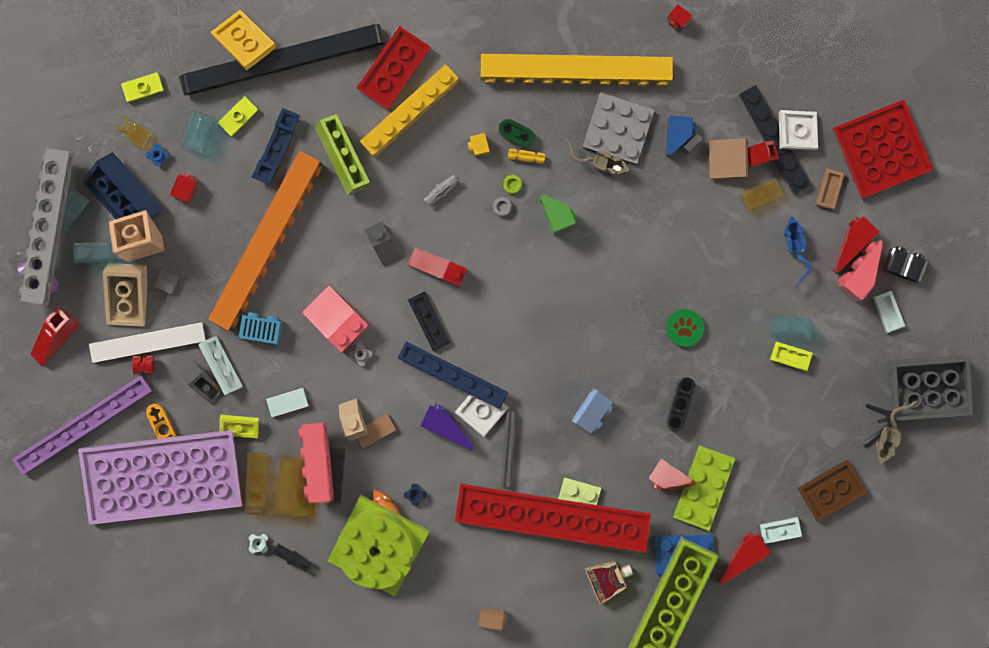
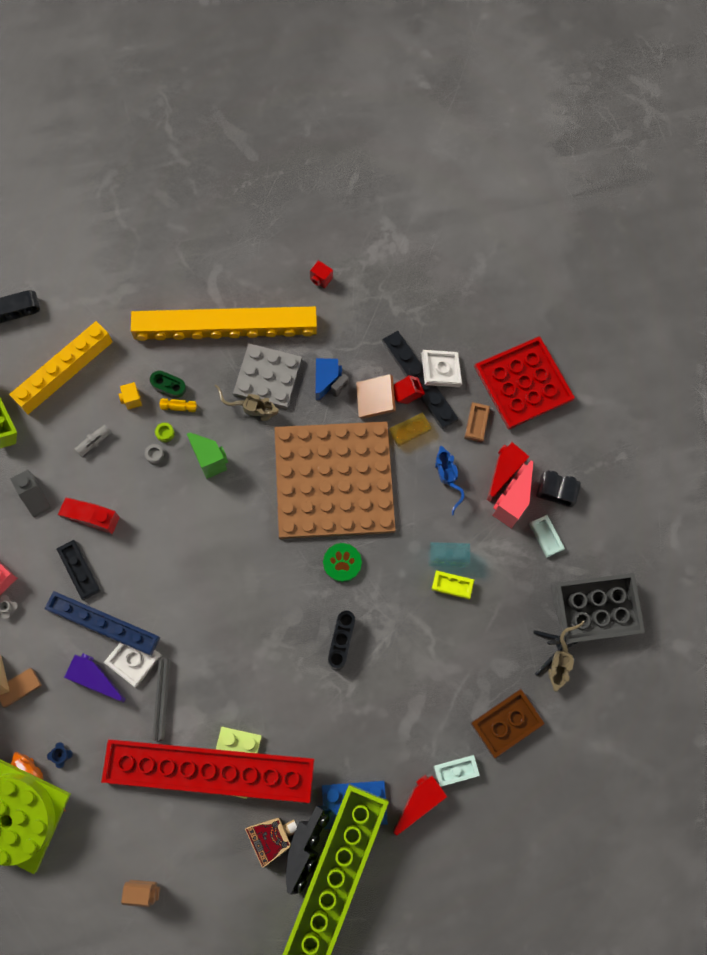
camera: 10 degrees left, 15 degrees down
(393, 68) = (47, 330): red plate -> none
(592, 411) = (248, 652): light blue slope -> none
(634, 595) = (301, 855): none -> black slope
(669, 478) = (333, 719): slope -> none
(681, 242) = (334, 480): none -> medium nougat plate
(700, 502) = (371, 729): lime plate -> none

